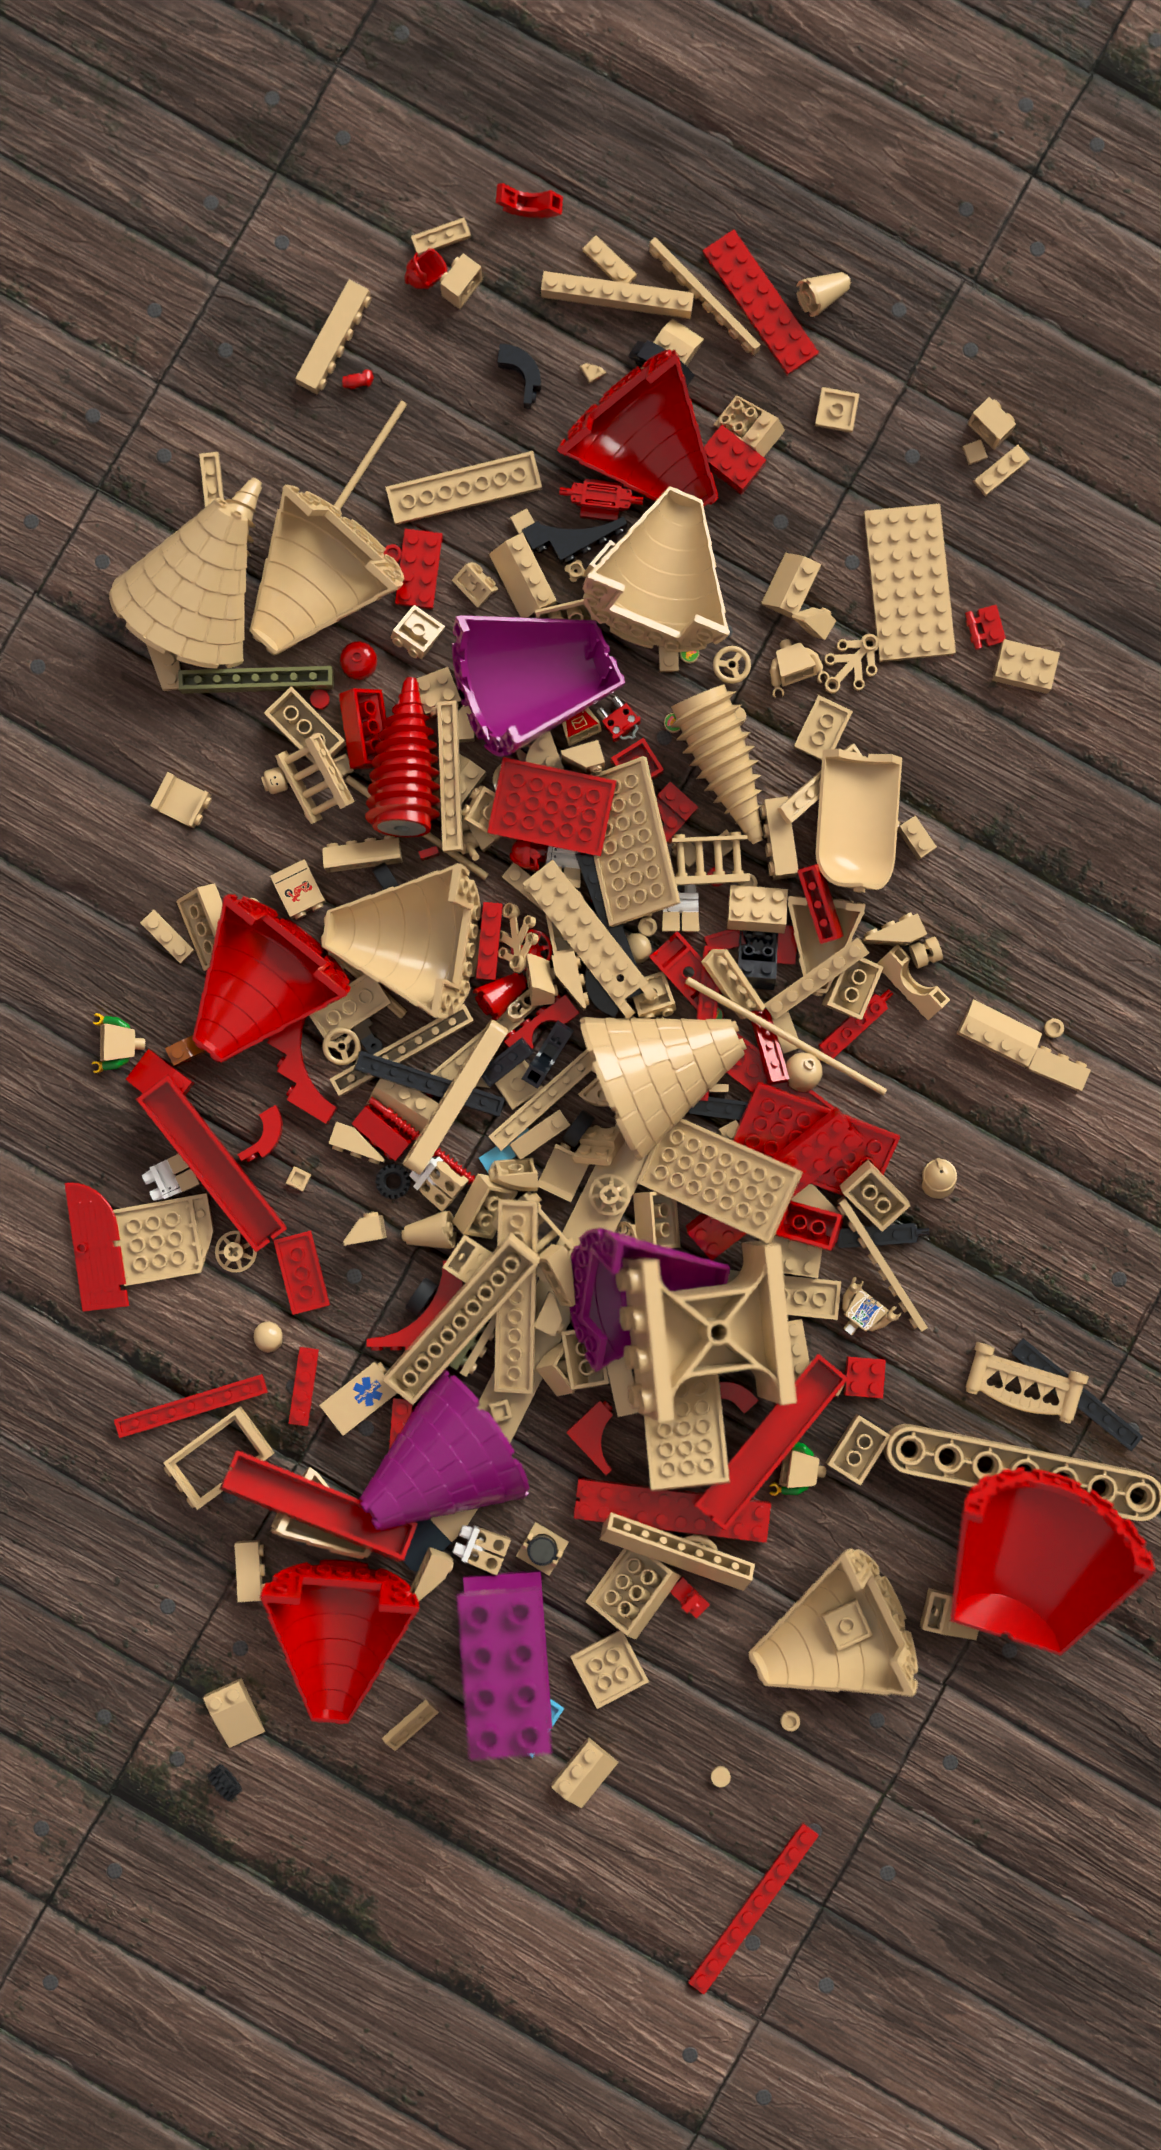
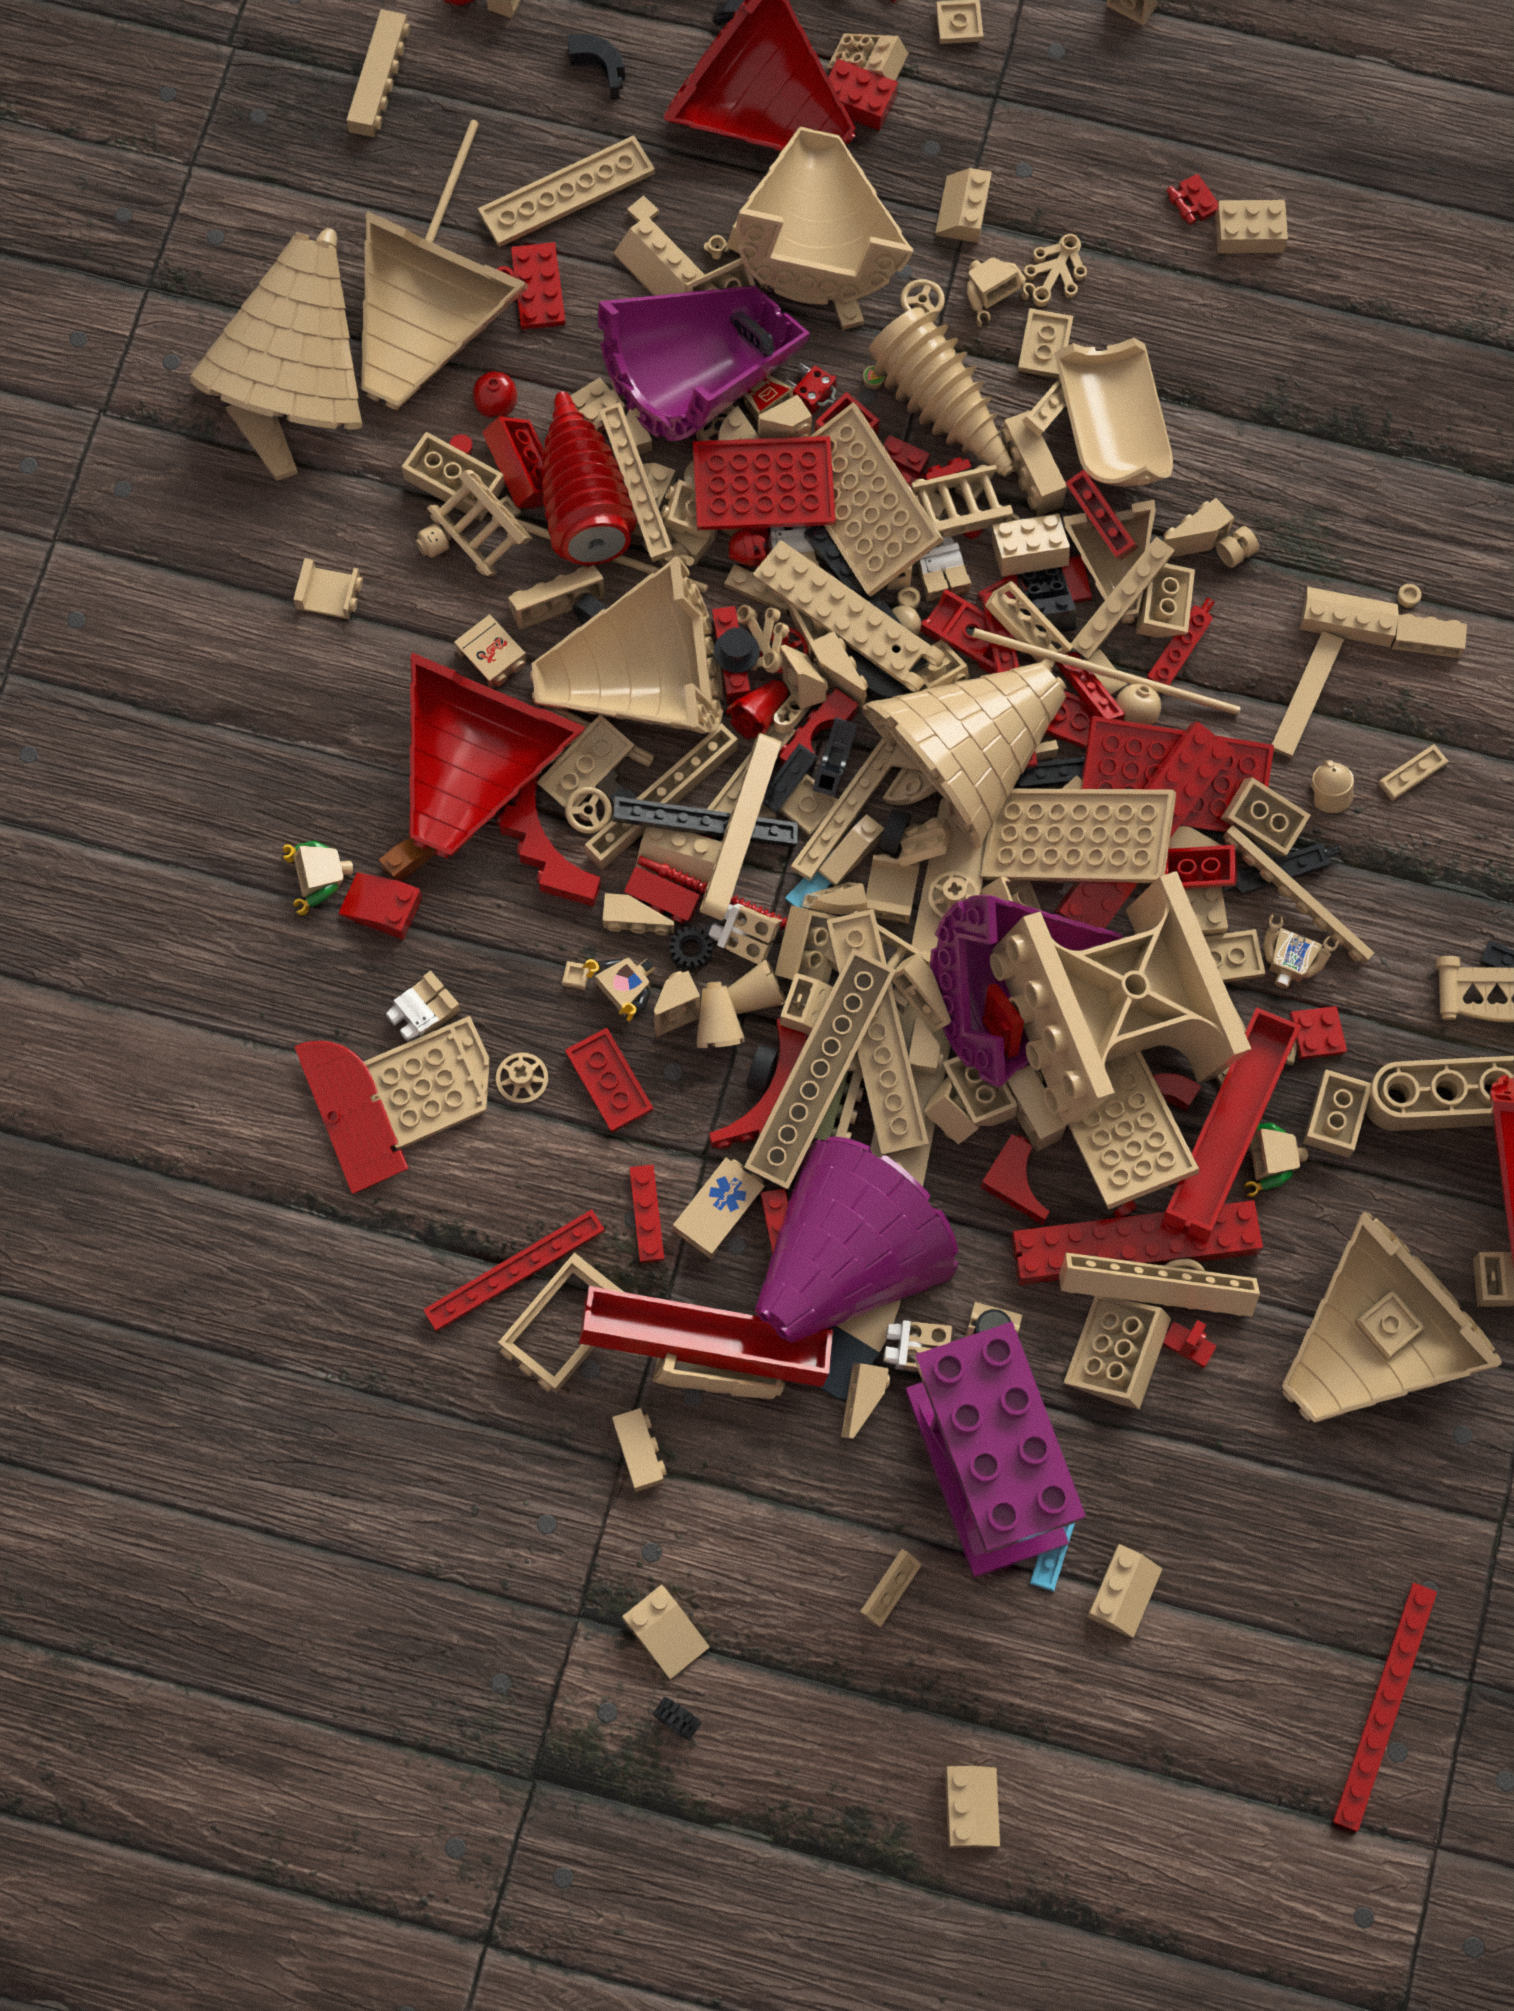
camera: 15 degrees left, 15 degrees down
(167, 937) = (348, 742): tan plate -> none
(201, 914) = (386, 710): tan slope -> none
(211, 477) = (272, 237): tan plate -> none
(211, 1163) = (468, 972): red piece -> none
(256, 679) = (381, 438): olive brick -> none
(268, 1337) = (587, 1166): tan hair -> none
(270, 1138) = (529, 939): red arch -> none
(332, 1198) = (623, 983): none -> torso
(337, 1630) = (773, 1490): red cone -> none
(356, 380) = (416, 110): red arm -> none
(396, 1252) = (717, 1018): none -> tan cone
(416, 632) = (554, 349): tan plate -> none
(425, 1902) = (972, 1806): none -> tan slope
(429, 853) = (632, 577): red tile -> none
(475, 583) = (605, 285): tan bracket -> none
(492, 945) = (736, 650): none -> black piece
(570, 542) = (704, 217): black arch -> none
(578, 671) = (753, 333): none -> black plate
(592, 372) = (677, 46): tan tile -> none
(600, 499) = (725, 165): red piece -> none
(609, 1668) = (1117, 1454): tan plate -> none
(613, 1319) = (1003, 1020): none -> red container
(690, 656) = (871, 303): tile -> none
(706, 826) = (953, 466): none -> red plate
(720, 1776) = (1293, 1552): tan tile -> none
(790, 1720) = (1357, 1462): tan tile -> none
(815, 621) = (1003, 234): tan slope -> none
(909, 582) = (1094, 175): tan plate -> none
(916, 838) = (1188, 429): tan brick -> none
(926, 999) = (1208, 570): tan arch -> none
(944, 1092) = (1307, 694): none -> tan tile
(974, 452) = (1123, 30): tan tile -> none
(1001, 470) = (1159, 41): tan plate -> none
(1008, 1180) = (1413, 772): none -> tan tile

